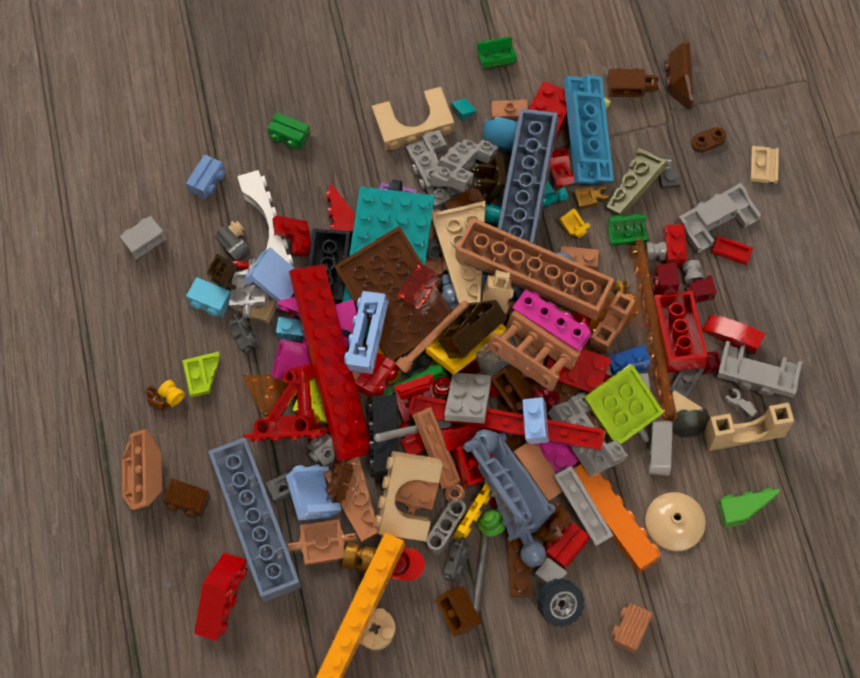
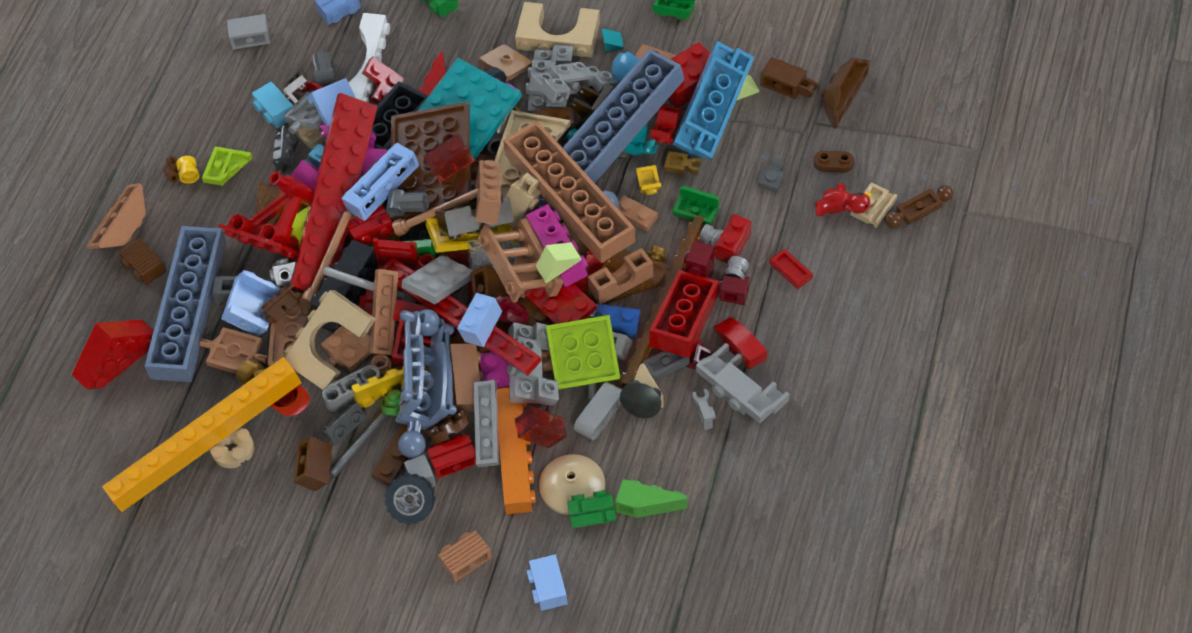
camera: 30 degrees right, 10 degrees down
(237, 229) = (336, 58): tan plate -> none
(362, 459) = (307, 295): none -> nougat piece
(387, 167) = (507, 60): none -> medium nougat plate
(395, 343) = (402, 202): none -> dark grey piece
(487, 313) = (489, 192): none -> nougat arch
(569, 338) = (556, 260): none -> yellowish green slope
(629, 487) = (540, 427): none -> clear red brick
(640, 176) = (730, 169): olive wing -> none
(709, 537) = (591, 510): none -> green brick
(712, 617) = (548, 582): none -> light blue brick
(715, 212) = (792, 226): light grey bracket -> none
(738, 173) = (839, 200): none -> red animal
(774, 424) = (667, 426): tan arch -> none
(800, 150) = (919, 206): none -> reddish brown plate

